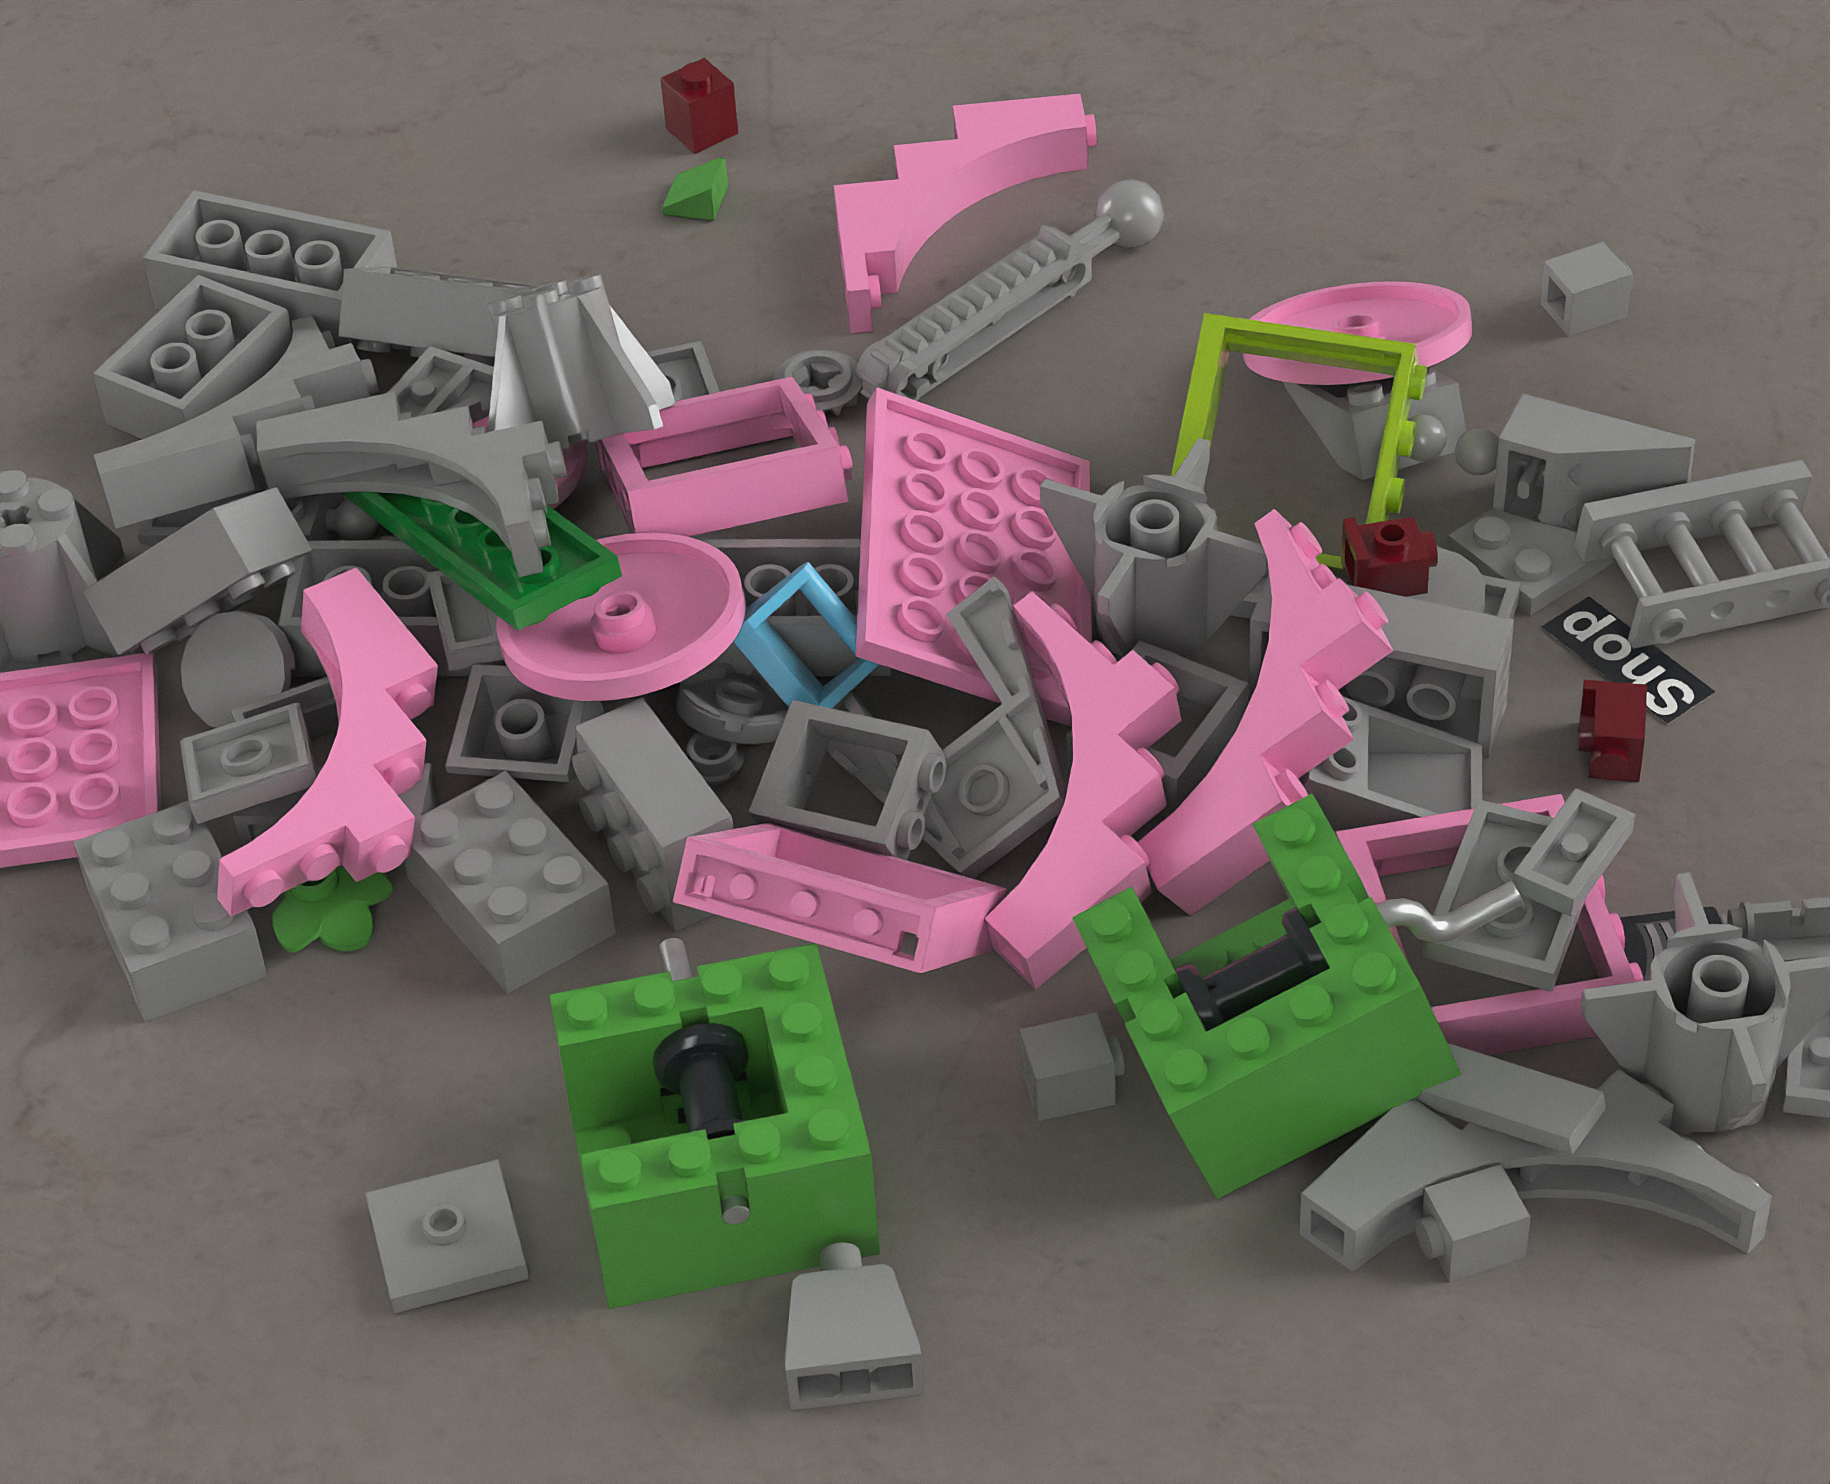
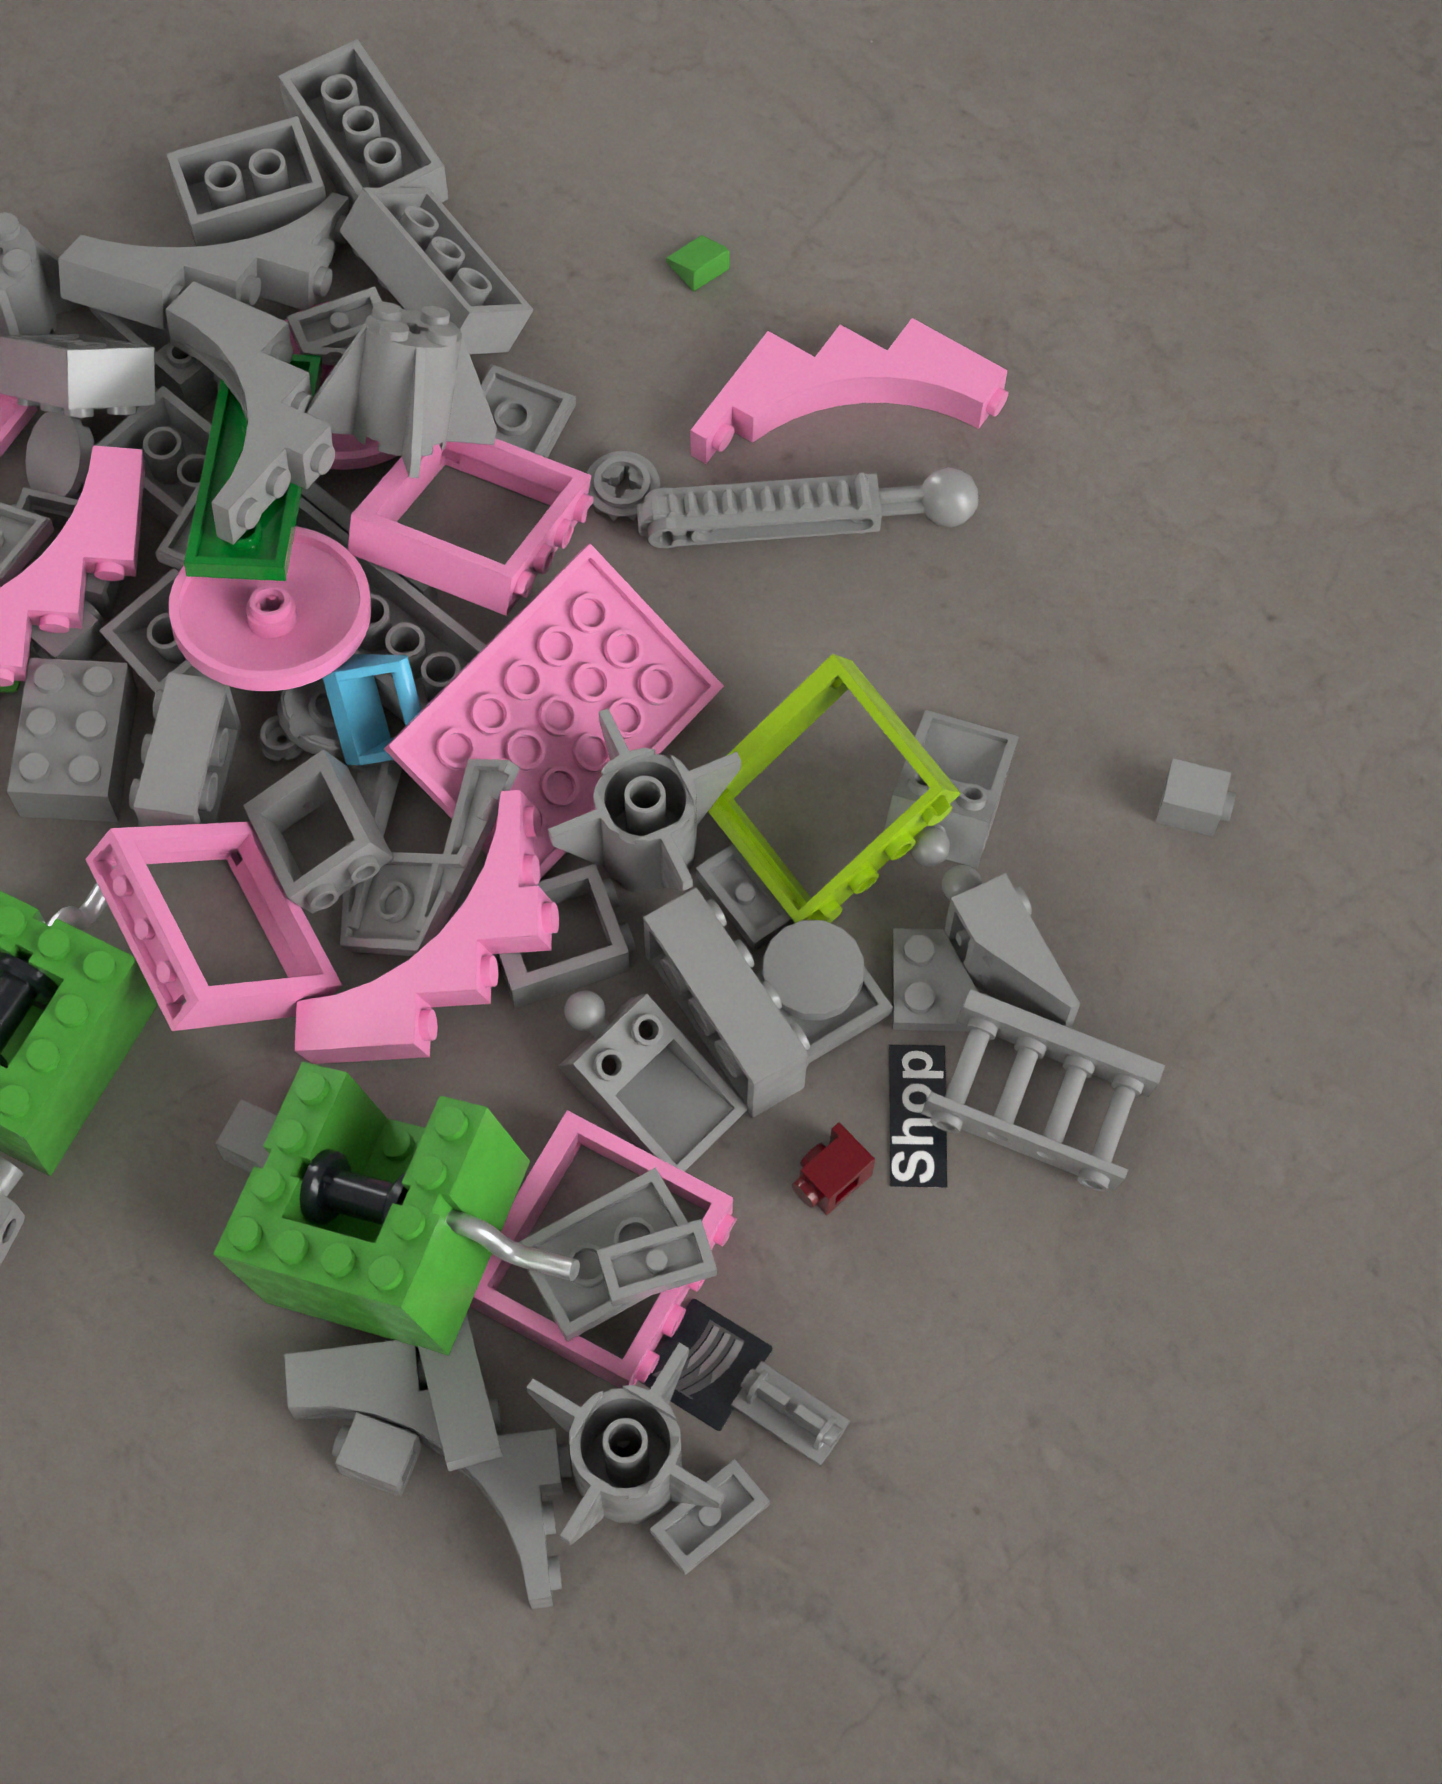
camera: 35 degrees right, 20 degrees up
(699, 105) = (759, 189): dark red brick -> none
(1294, 721) = (590, 1018): bright pink arch -> none
(1388, 556) = (797, 946): dark red brick -> none
(1395, 311) = (986, 721): bright pink dish -> none

